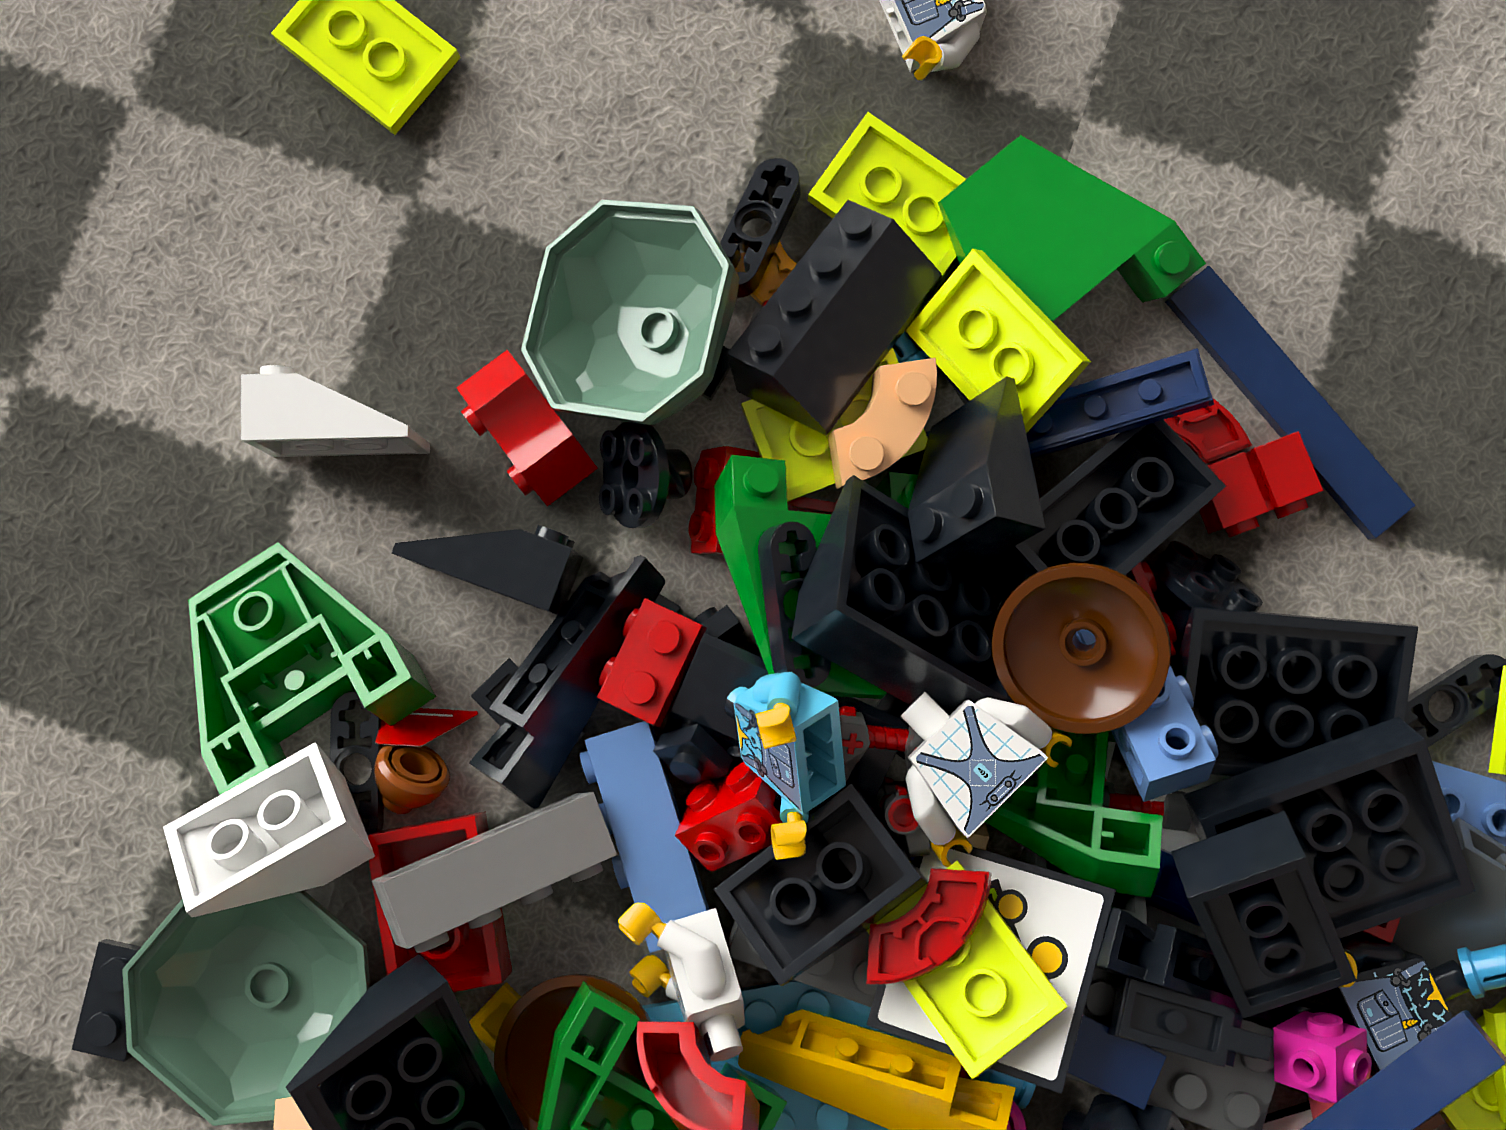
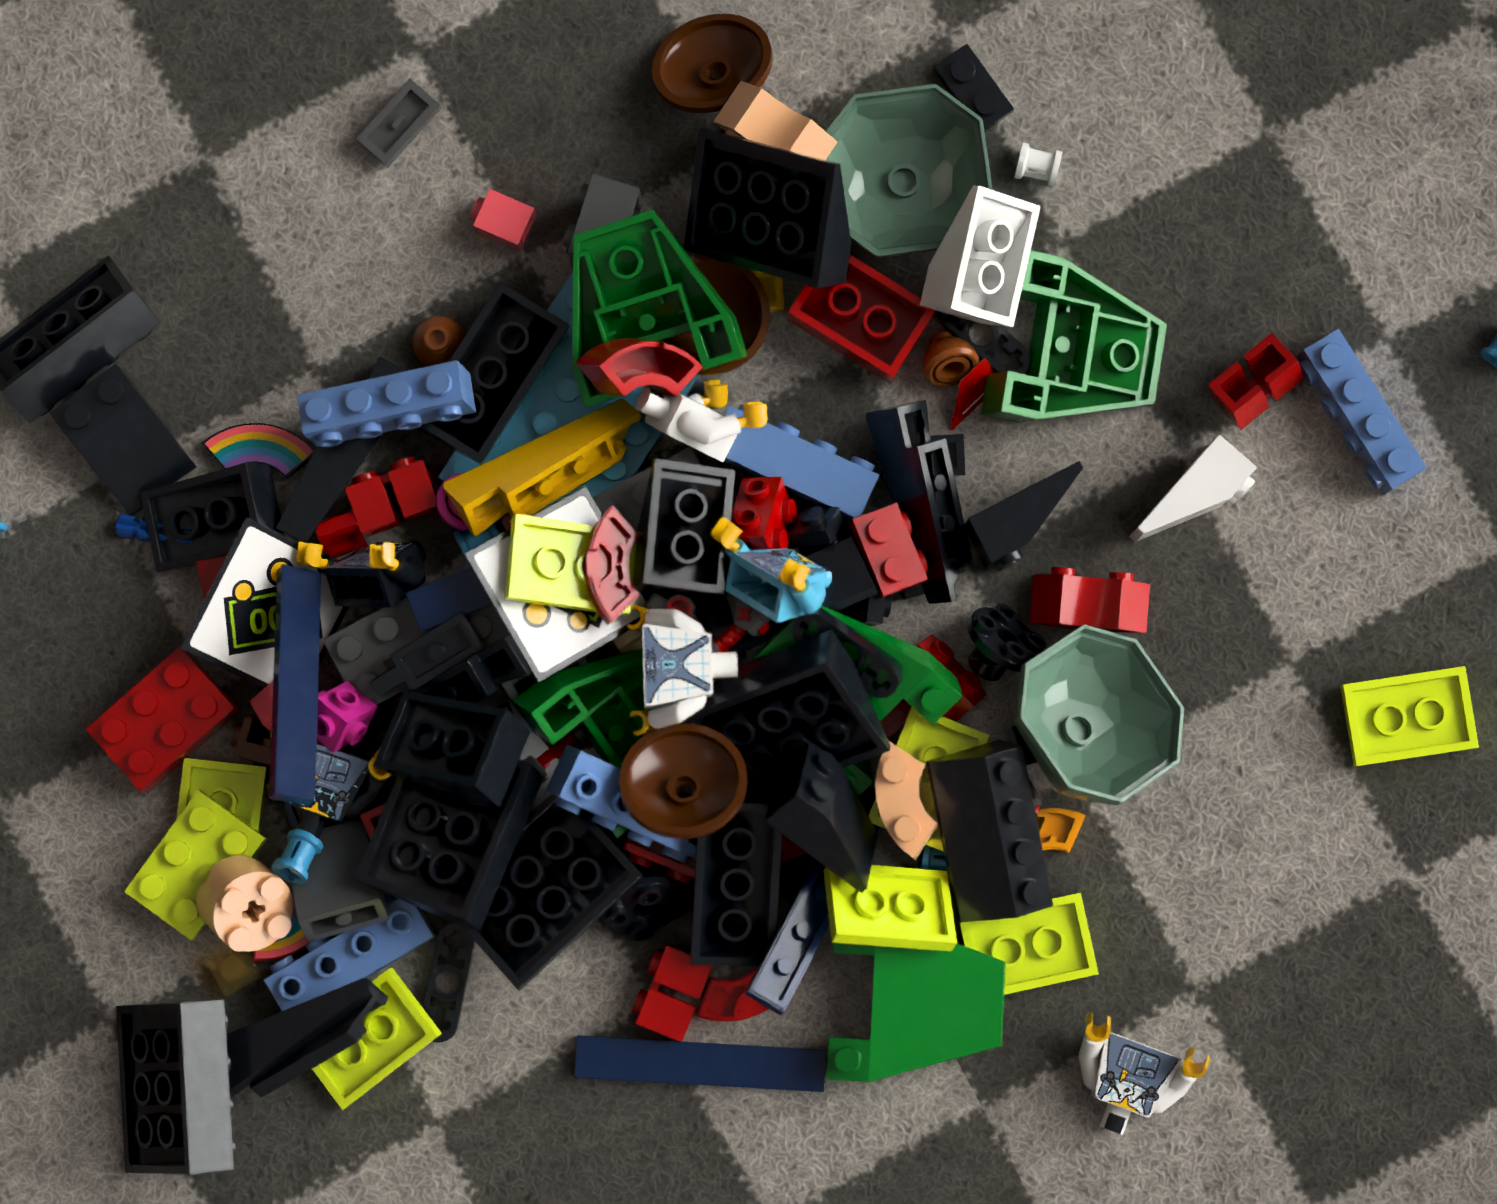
camera: 135 degrees right, 0 degrees up
(108, 337) = (1360, 411): none -> medium blue brick
(134, 865) = (1038, 164): none -> white bush
(142, 456) = (1273, 373): none -> red piece
(494, 870) = (852, 363): light grey brick -> none
(755, 205) = (1089, 876): black beam -> none

